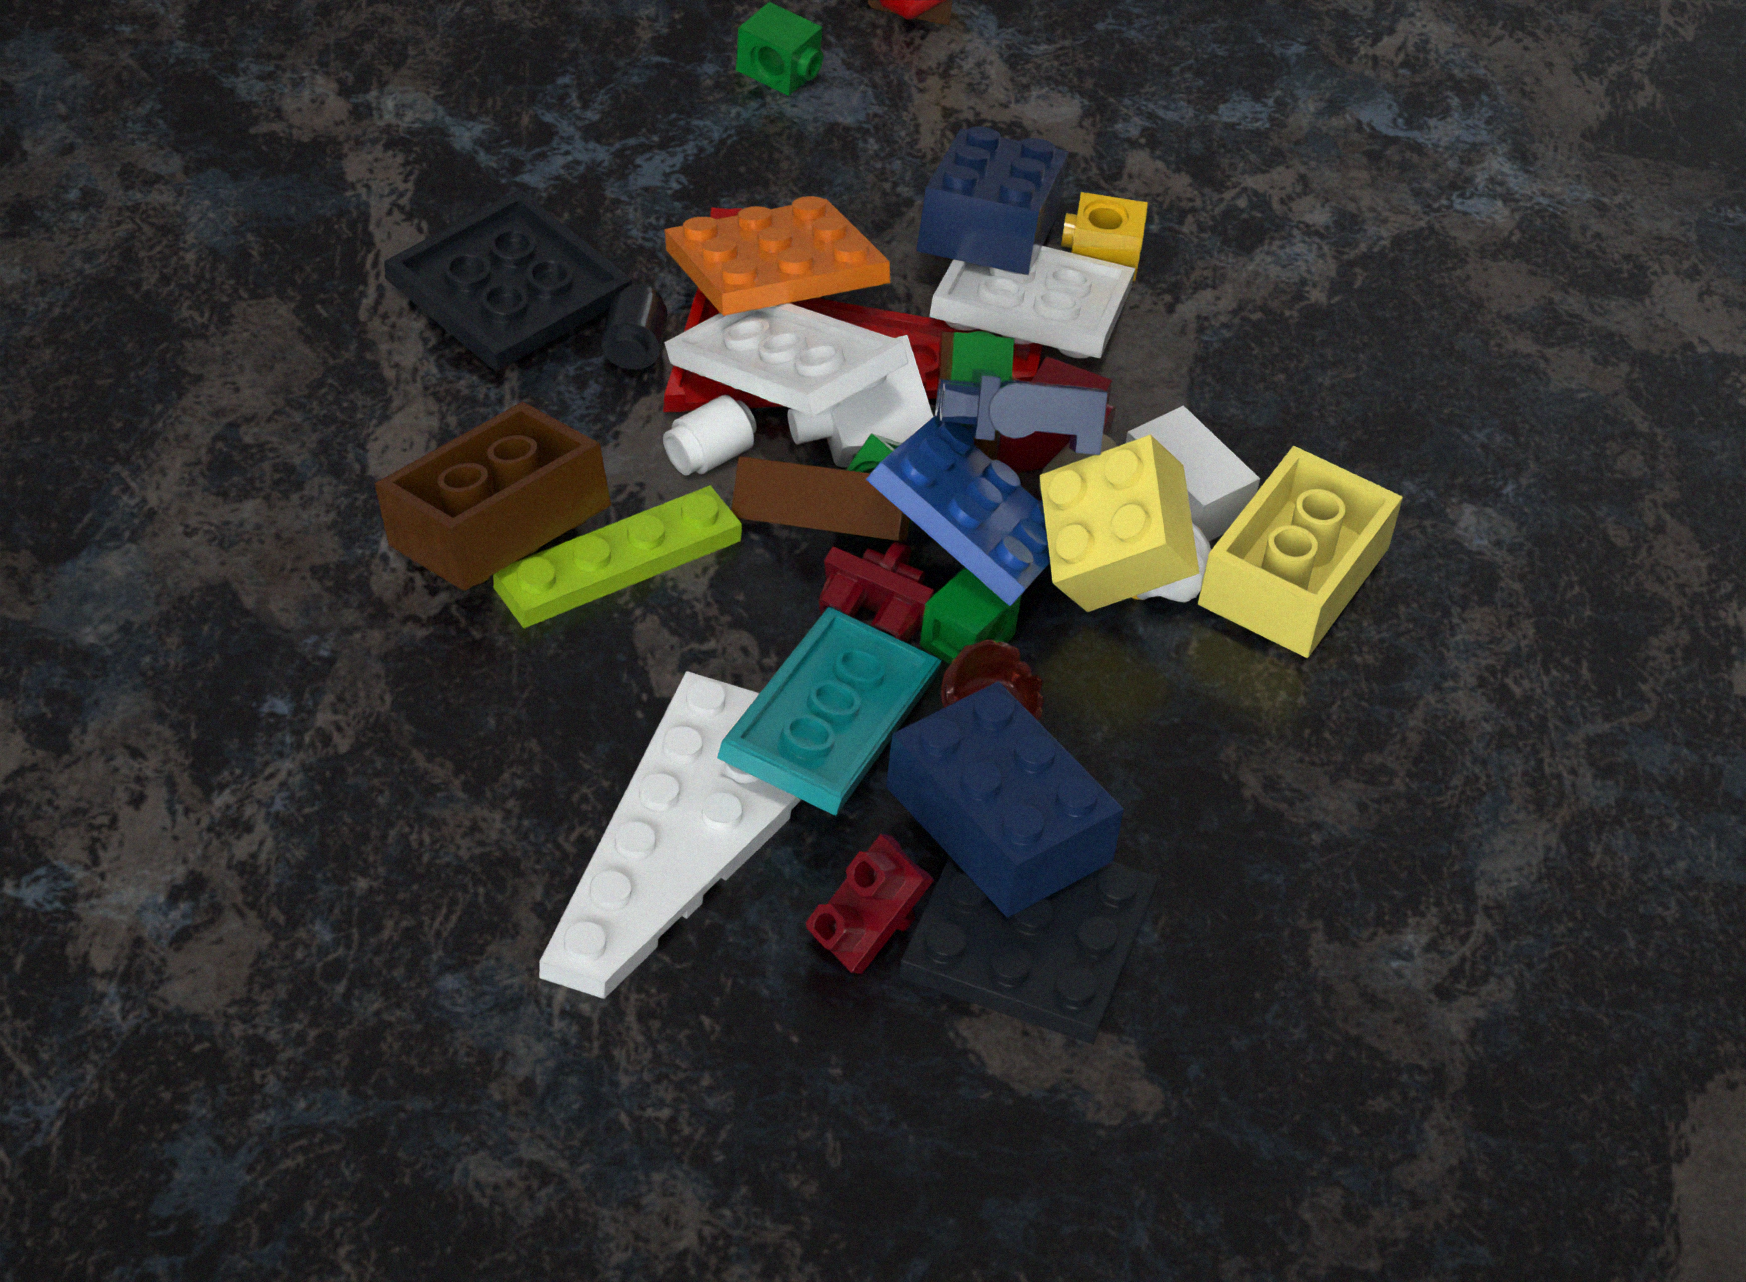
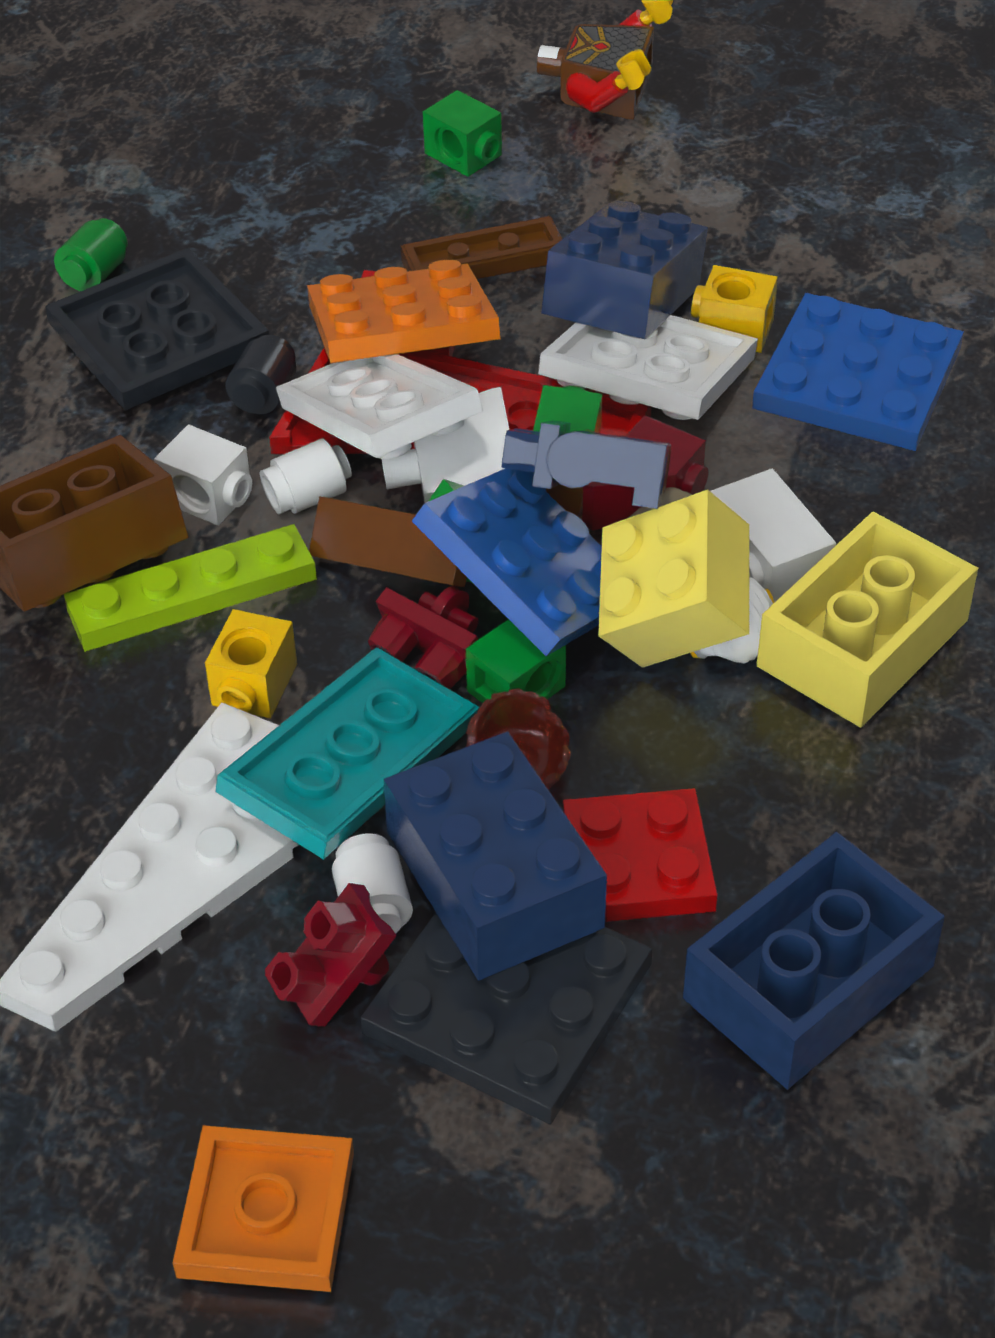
camera: 15 degrees right, 0 degrees up
(414, 200) = (91, 254): none -> green brick
(619, 428) = (207, 473): none -> white brick
(708, 629) = (251, 663): none -> yellow brick
(839, 178) = (490, 249): none -> reddish brown tile
(856, 1137) = (264, 1209): none -> orange plate
(878, 813) = (377, 866): none -> white brick
(1149, 783) = (649, 850): none -> red plate
(1237, 297) = (858, 371): none -> blue plate
(1310, 874) = (811, 958): none -> dark blue brick

